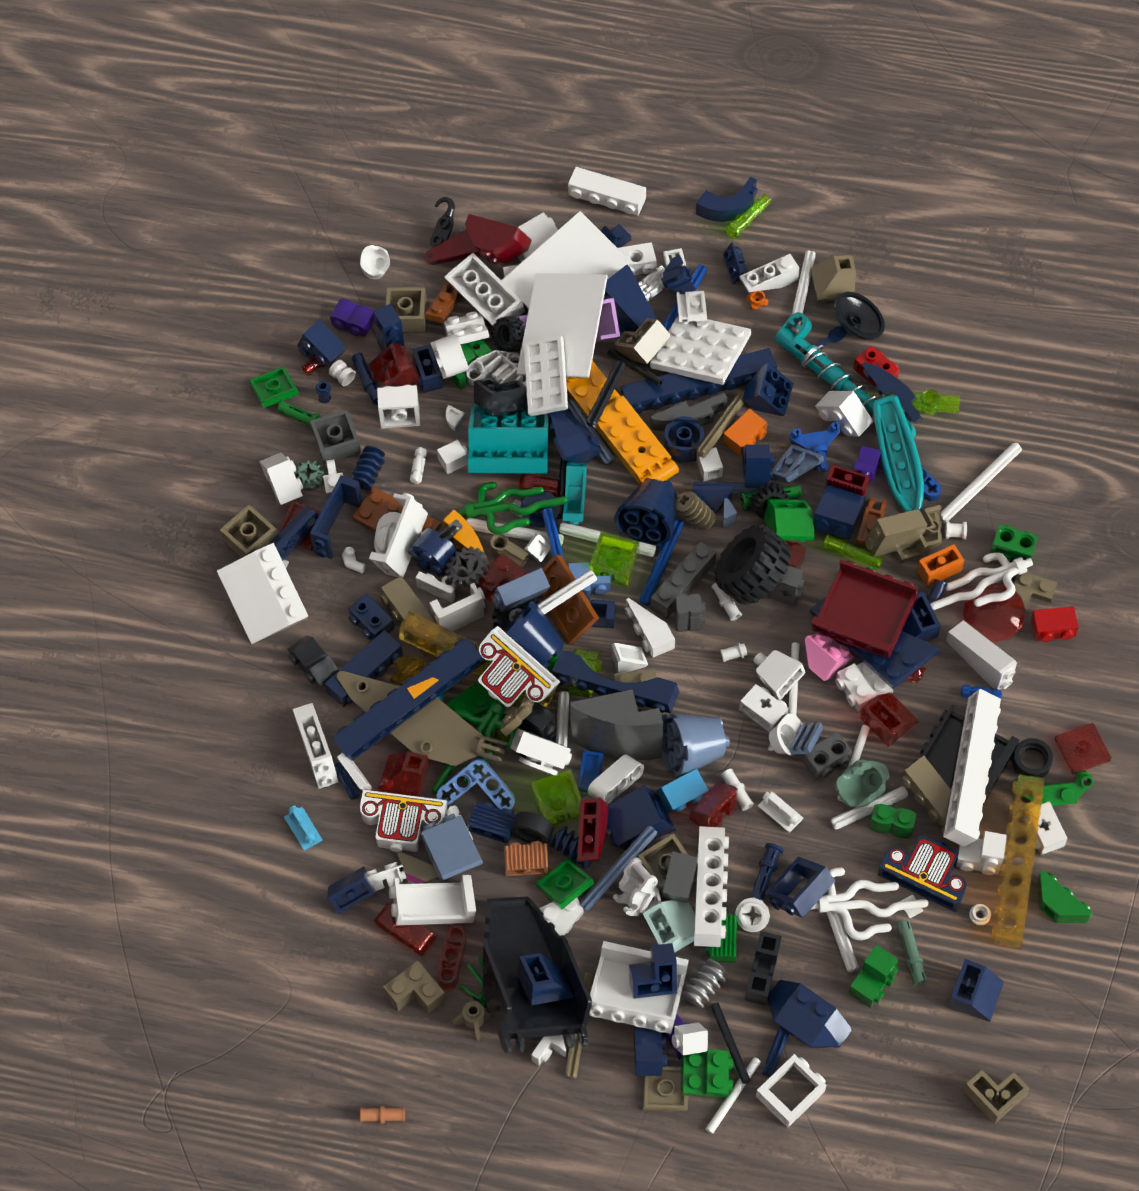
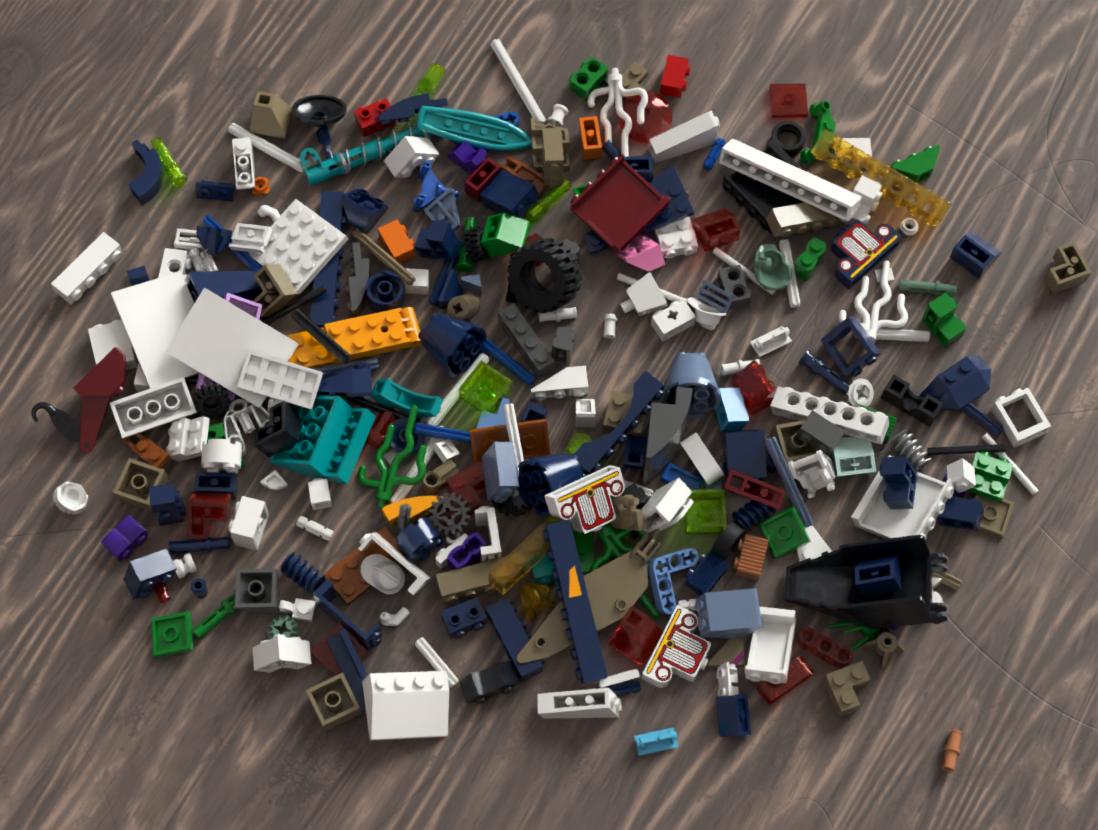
camera: 75 degrees left, 5 degrees up
(320, 611) = (435, 660): none -> white axle
(428, 591) = (467, 552): none -> dark purple brick
(732, 314) = (268, 211): none -> white arm

